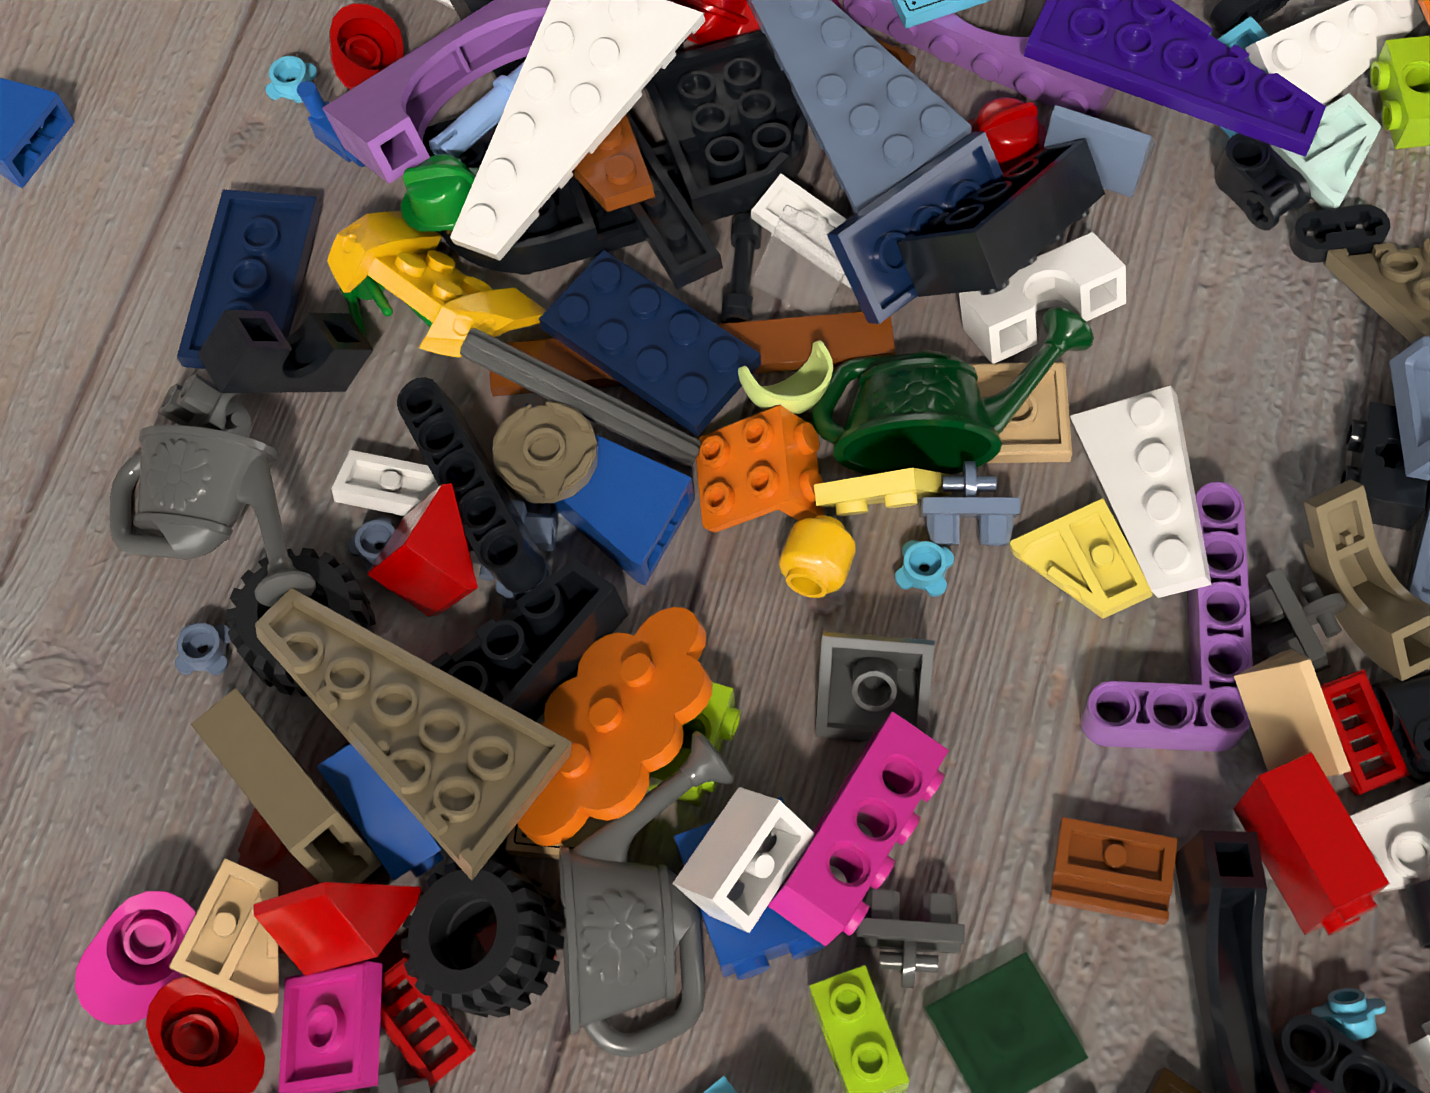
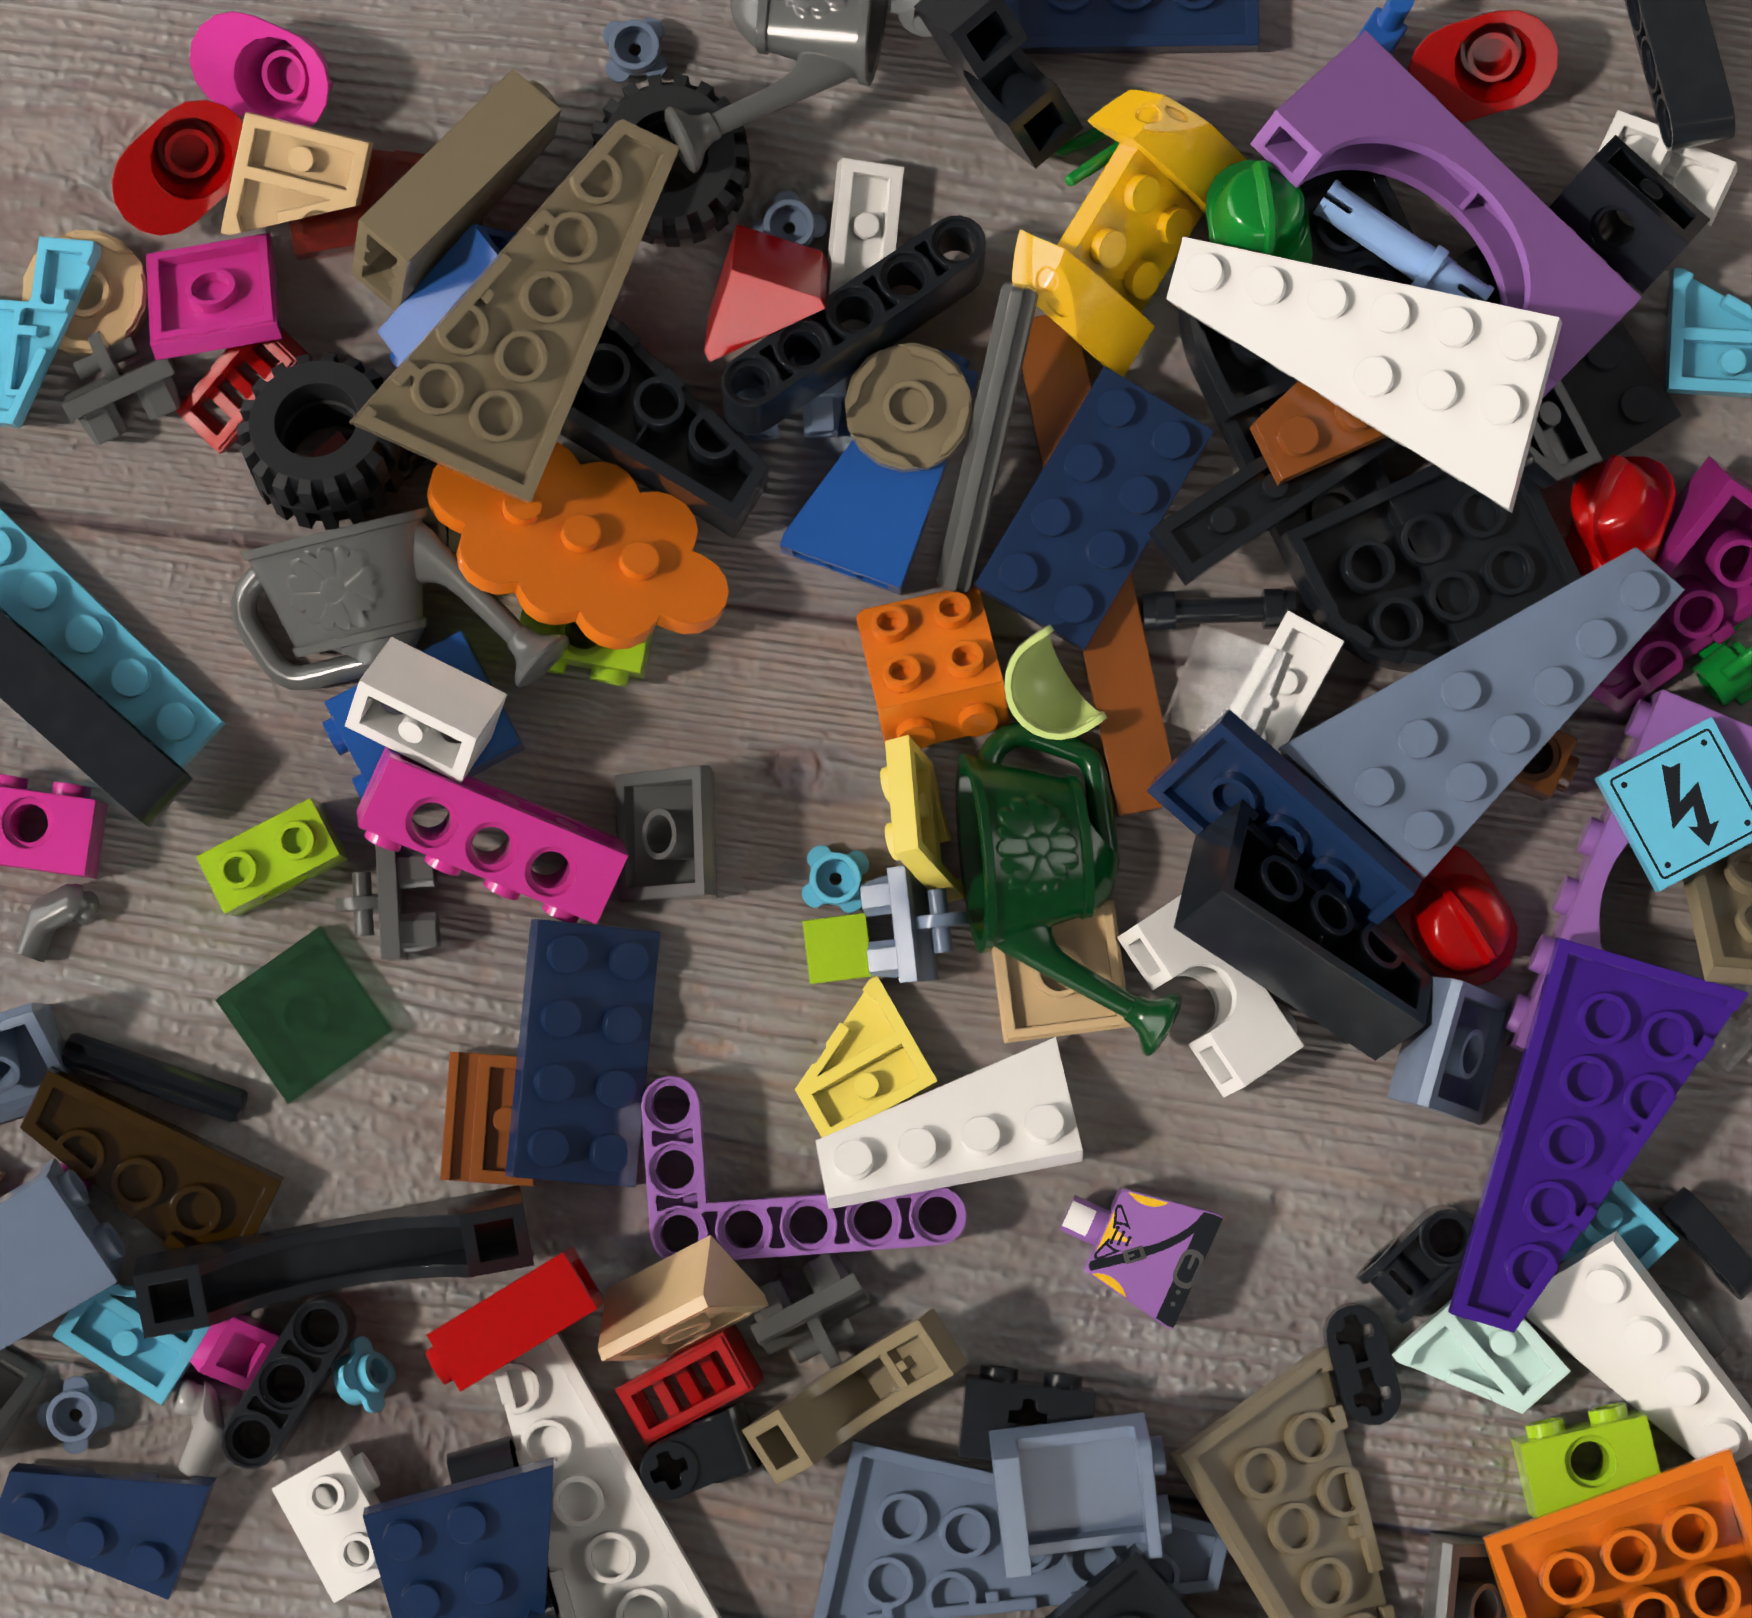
camera: 80 degrees right, 20 degrees up
(336, 922) = (312, 286): red slope -> none
(817, 556) = (826, 750): yellow head -> none
(983, 573) = (836, 948): none -> lime tile
(1062, 783) = (582, 1053): none -> dark blue plate
(1248, 365) = (1144, 1248): none -> torso

